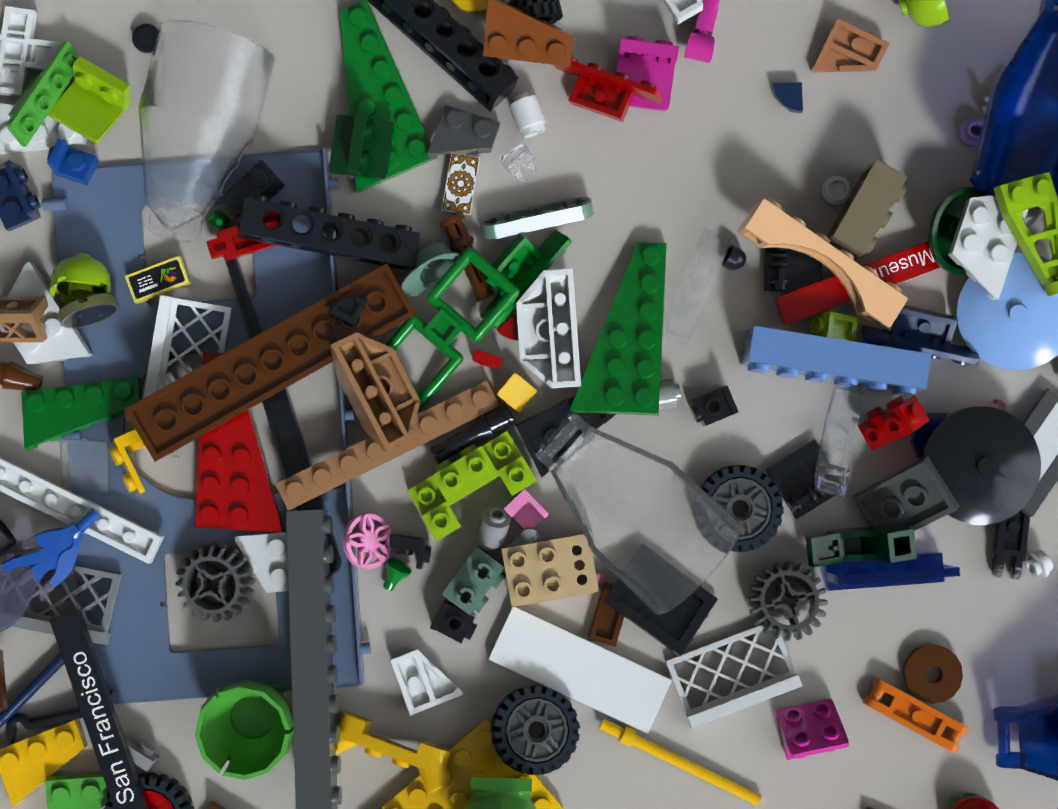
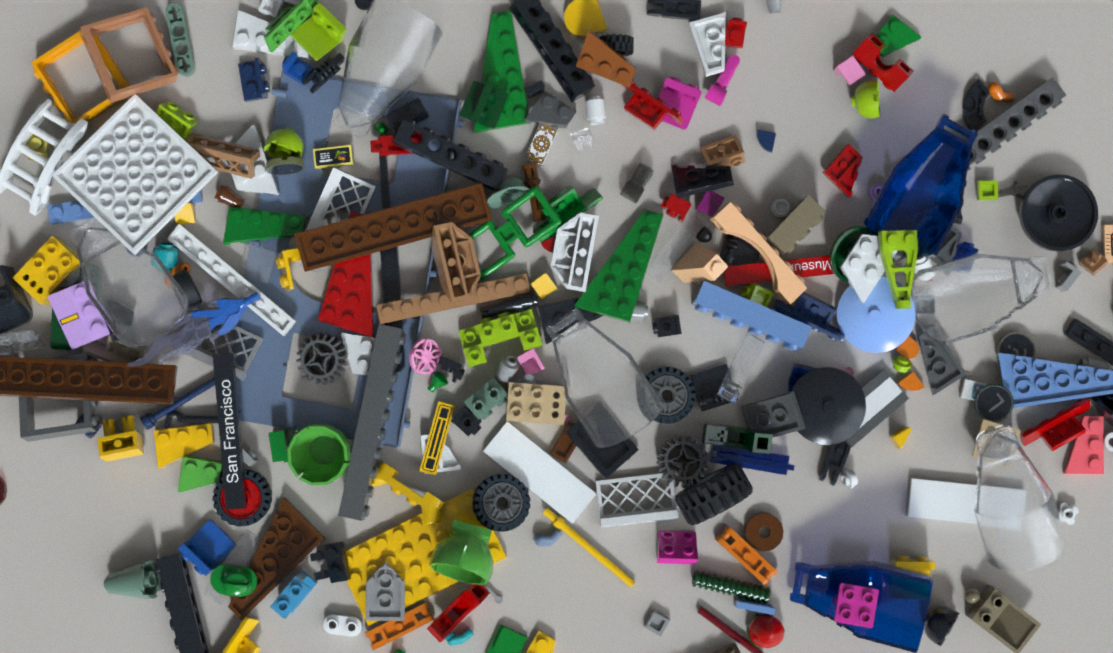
camera: 15 degrees right, 0 degrees up
(113, 157) = (324, 72): none -> black hinge
(182, 725) = (279, 444): none -> green piece
(348, 309) = (450, 206): black tile -> none
(415, 658) = (437, 438): none -> sticker
(431, 106) = (535, 89): none -> black tile
(487, 359) = (530, 260): red tile -> none
(537, 218) = (584, 178): beam -> none
(614, 212) = (635, 186): none -> clear smoke piece
(616, 767) = (547, 540): none -> sand blue arm
(682, 227) = (676, 207): none -> red brick
(706, 179) = (699, 180): none -> black wing
(731, 208) = (710, 203): none -> magenta panel
(732, 133) = (724, 152): none -> medium nougat bracket
(739, 304) = (699, 265): none -> light nougat slope
(849, 640) = (714, 494): none -> black tyre
(850, 50) = (812, 120): nougat wing -> none
(894, 422) = (777, 365): red brick -> none
(905, 767) = (729, 586): none -> dark green piece
(915, 110) = (844, 169): none -> red wing
(947, 788) = (754, 606): none -> medium blue tile

